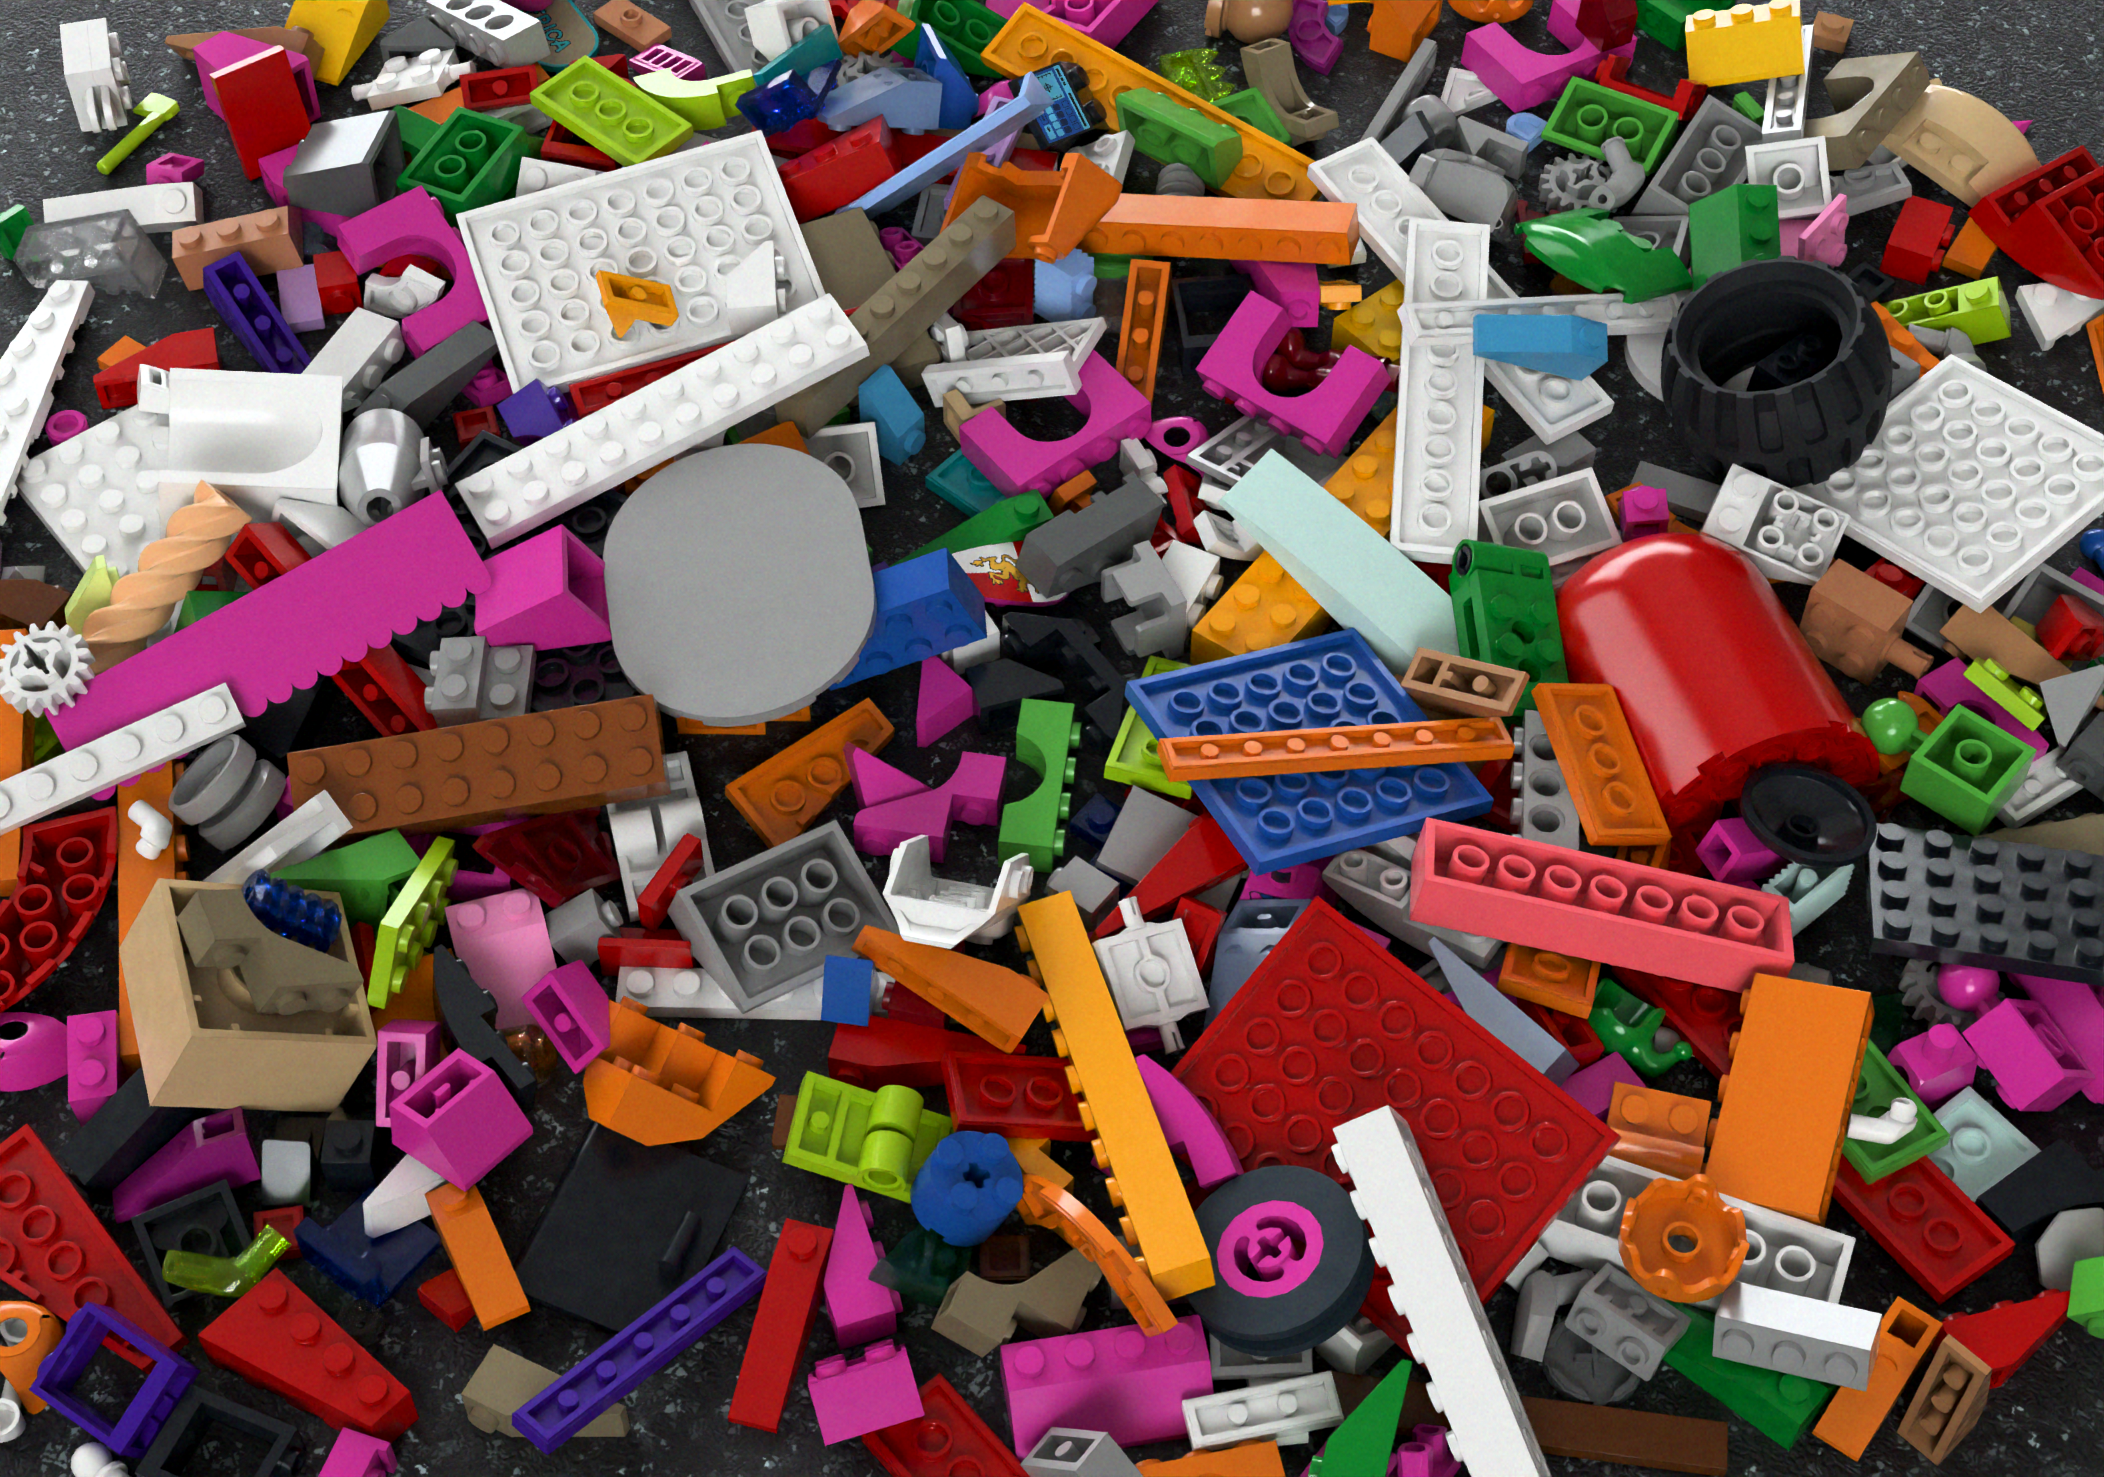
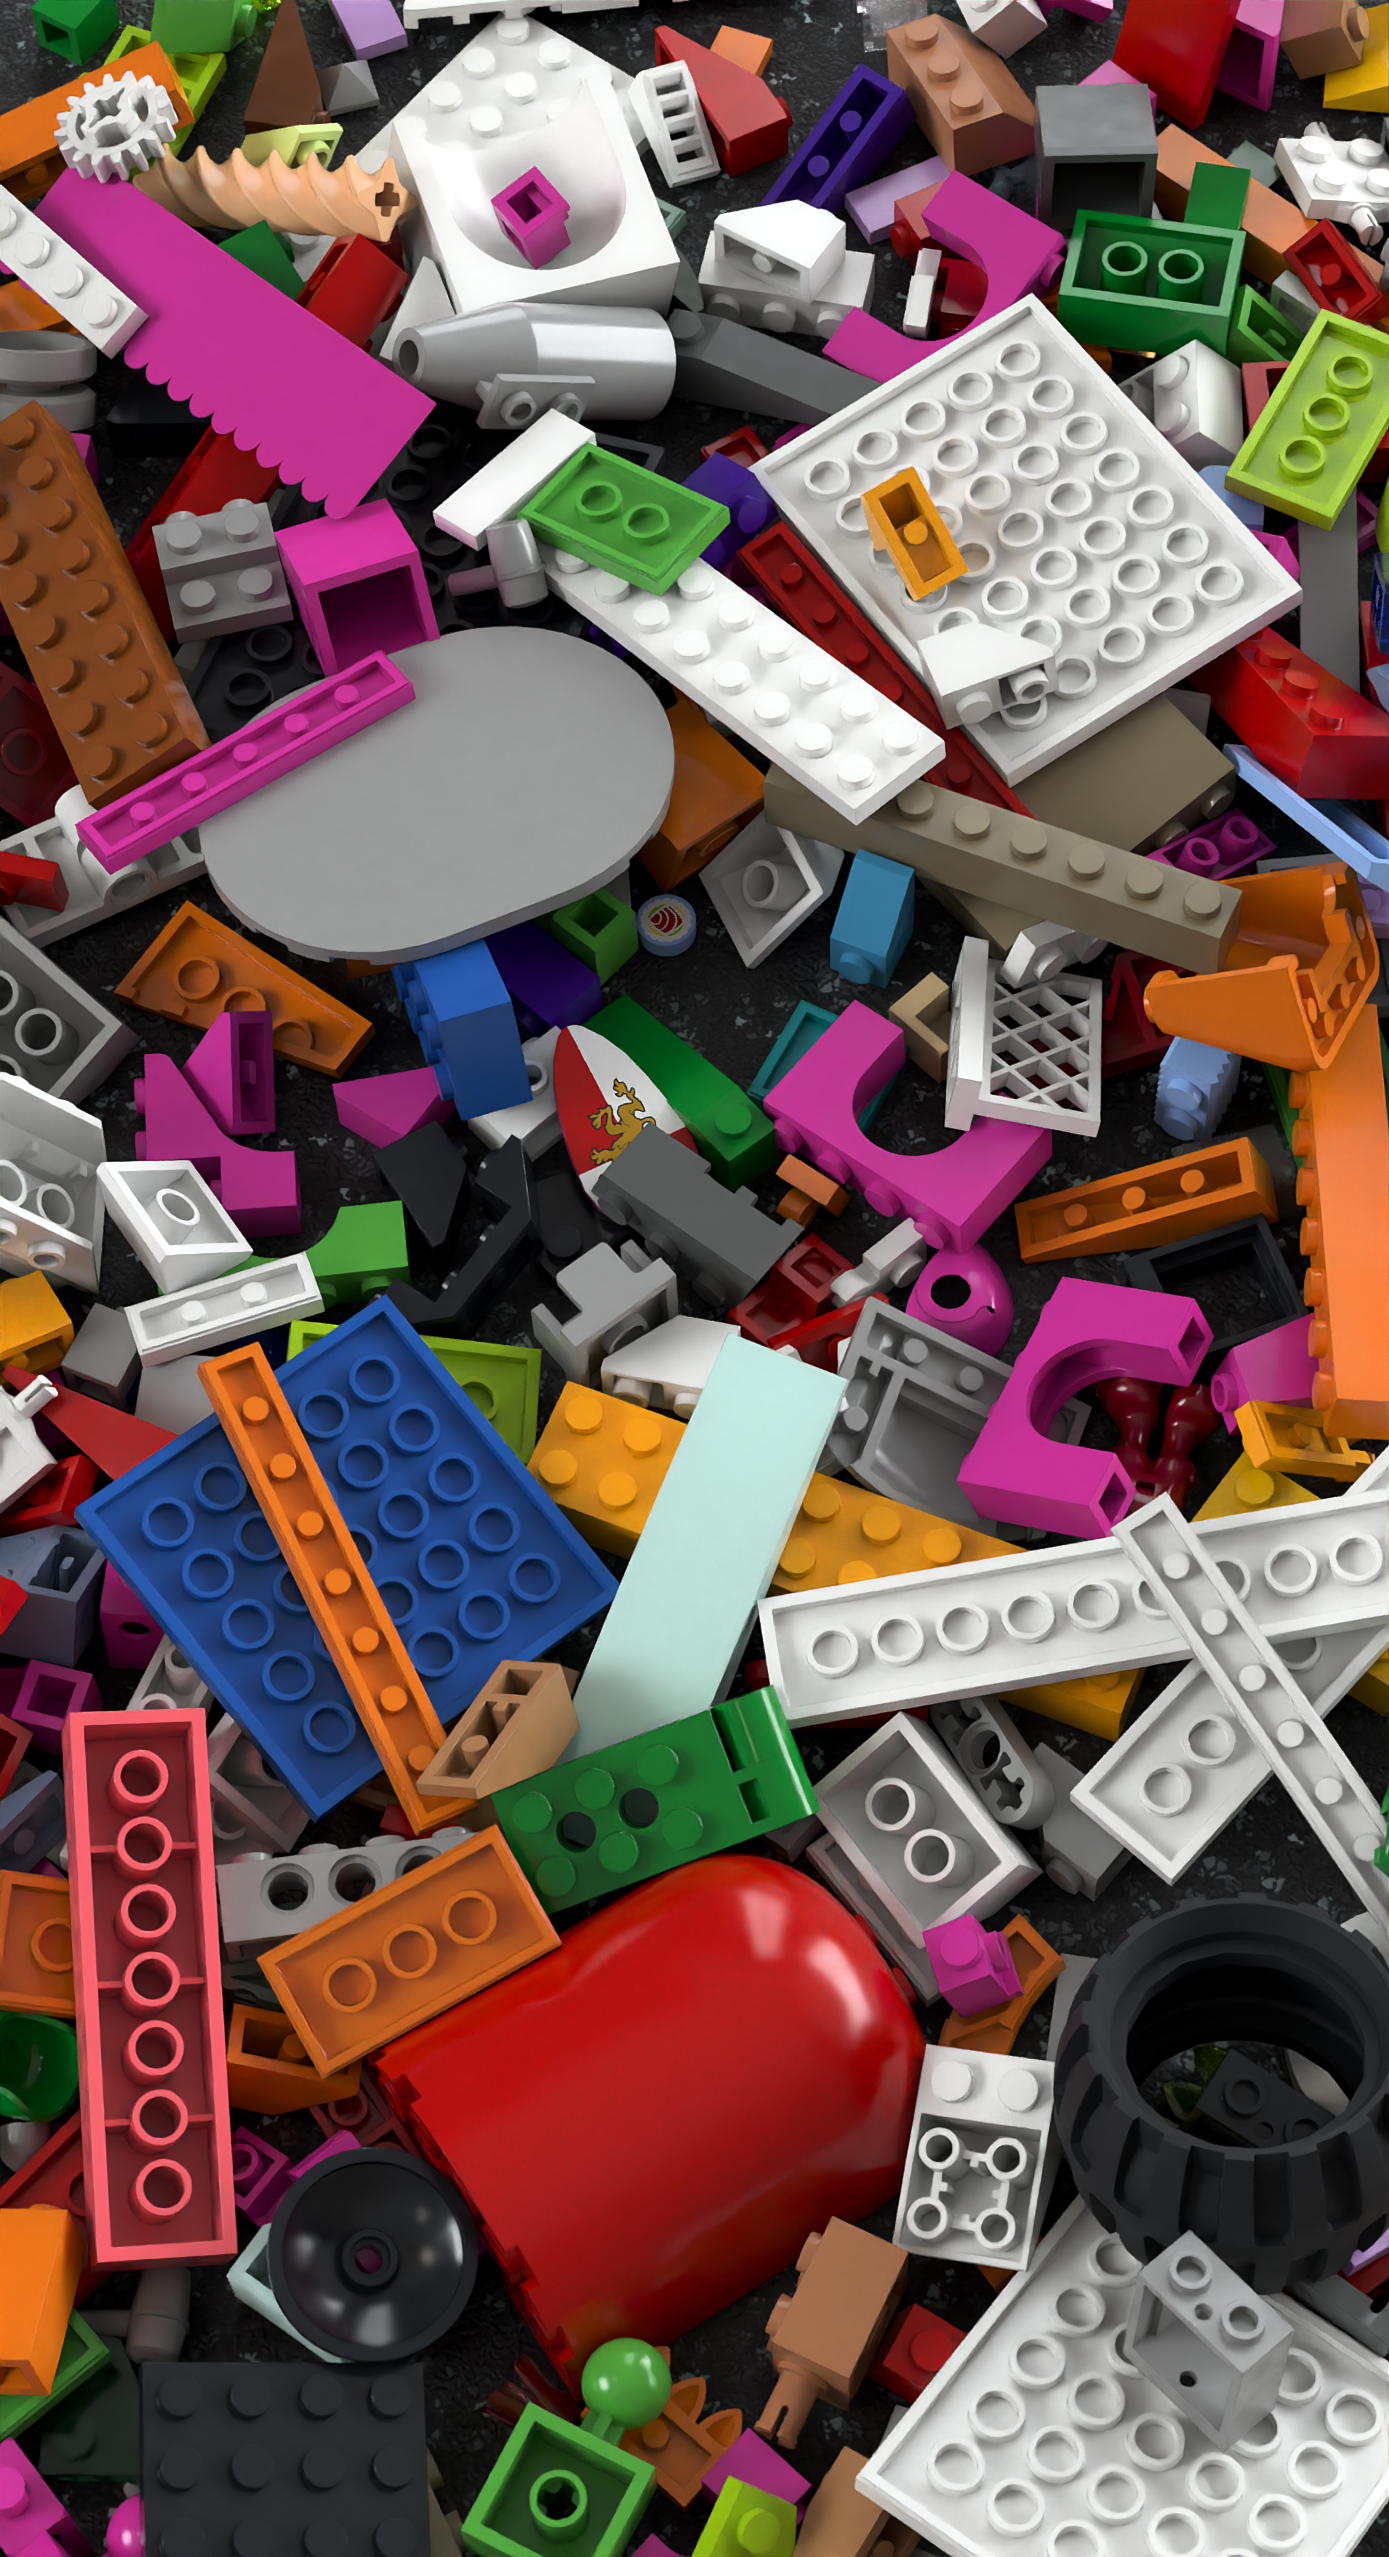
camera: 80 degrees right, 10 degrees up
(65, 426) = (606, 38): dark pink tile -> none
(260, 444) = (533, 217): none -> dark pink brick
(341, 337) = (783, 246): none -> white slope
(494, 491) = (511, 478): none -> white tile
(561, 434) = (624, 519): none -> bright green tile
(566, 503) = (514, 567): none -> light grey piece
(673, 681) = (244, 762): none -> dark pink tile
(1011, 823) = (172, 1221): none -> white slope
(1083, 804) = (224, 1309): none -> white tile
(1544, 343) = (1195, 1720): dark azure slope -> none
(1953, 432) = (1231, 2355): none -> light grey window

